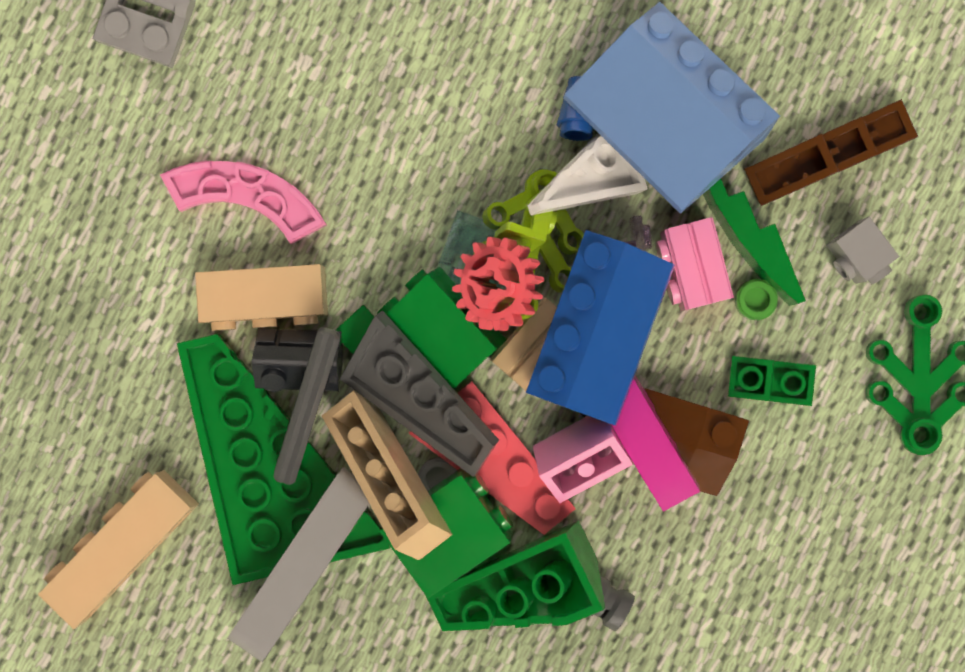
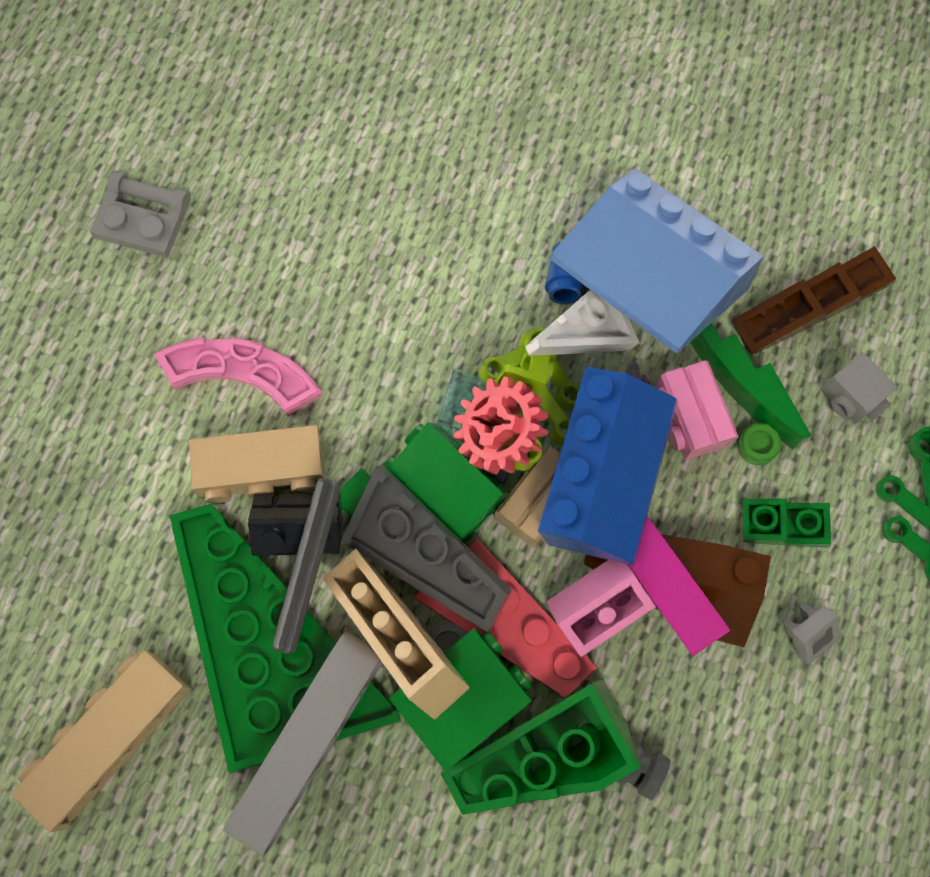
camera: 10 degrees left, 15 degrees down
(783, 491) = (815, 634): none -> light grey tile

